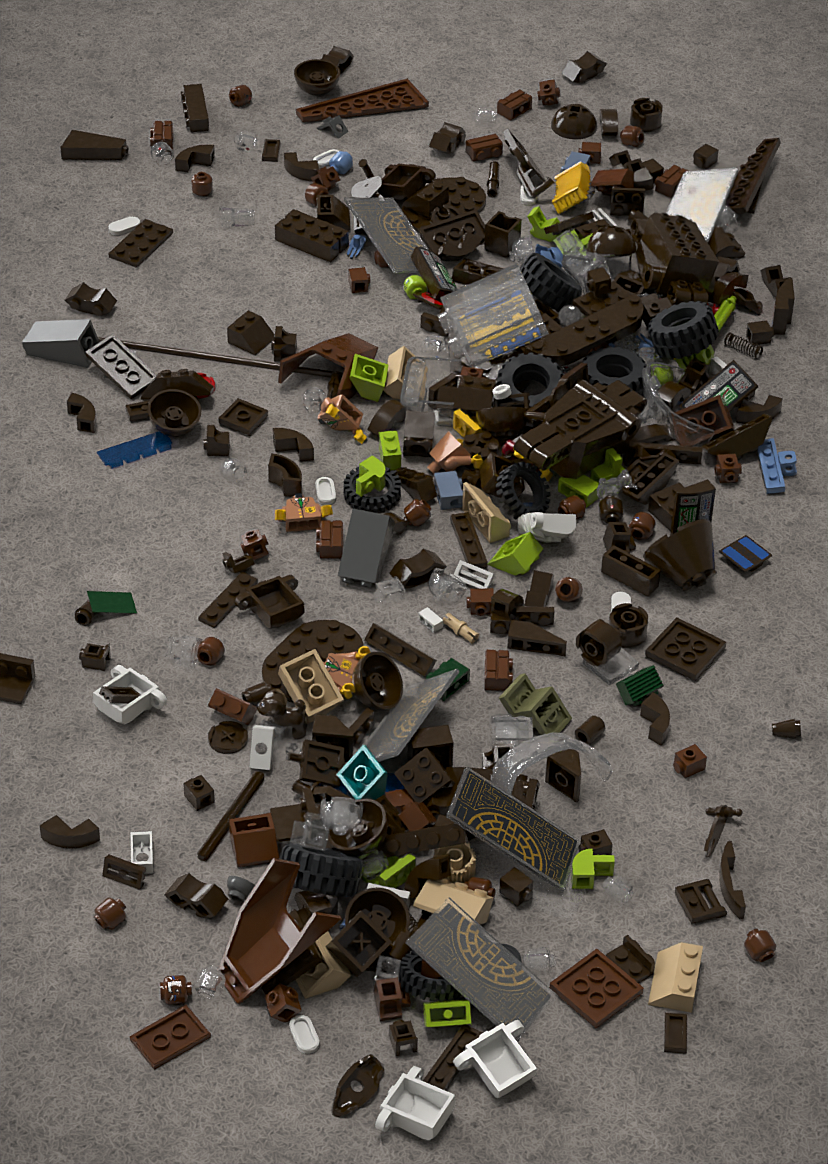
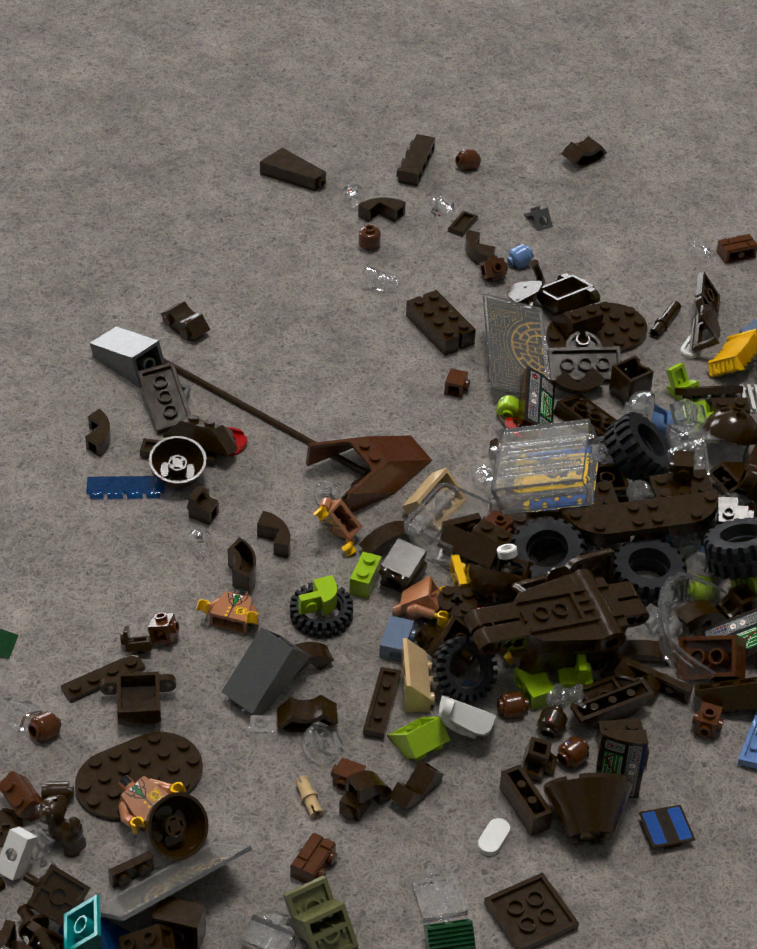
camera: 25 degrees right, 0 degrees up
(123, 226) = (274, 256): white tile -> none
(140, 243) = (274, 279): dark brown plate -> none
(162, 132) = (367, 177): reddish brown brick -> none
(243, 416) = (248, 488): dark brown plate -> none
(250, 333) = (313, 404): dark brown slope -> none
(283, 344) = (336, 425): dark brown brick -> none
(311, 682) = (103, 805): tan slope -> none
(314, 190) = (474, 281): reddish brown head -> none
(317, 76) = (551, 162): dark brown piece -> none
(324, 158) = (503, 248): white tile -> none
(325, 490) = (276, 595): white tile -> none
(330, 538) = (239, 644): reddish brown brick -> none
(333, 211) = (470, 304): dark brown slope -> none
(333, 732) = (85, 865): dark brown slope -> none
(356, 243) = (480, 346): medium blue piece -> none
(368, 377) = (392, 488): lime slope -> none
(380, 99) = (600, 203): reddish brown wing -> none
(400, 650) = (231, 798): dark brown plate -> none
(417, 484) = (368, 620): dark brown slope -> none
(417, 512) = (347, 652): reddish brown head -> none
(430, 620) = (285, 776): white piece -> none
(447, 138) = (643, 263): dark brown brick -> none
(460, 680) = (264, 850): dark green brick -> none
(484, 147) = (676, 283): reddish brown brick -> none
(488, 581) = (370, 754): white tile -> none
(532, 638) = (370, 834): dark brown slope -> none
(536, 615) = (393, 812): dark brown plate -> none
(569, 589) = (447, 796): reddish brown head -> none
(599, 642) = (429, 872): dark brown brick -> none
(631, 623) = (482, 862): dark brown brick -> none

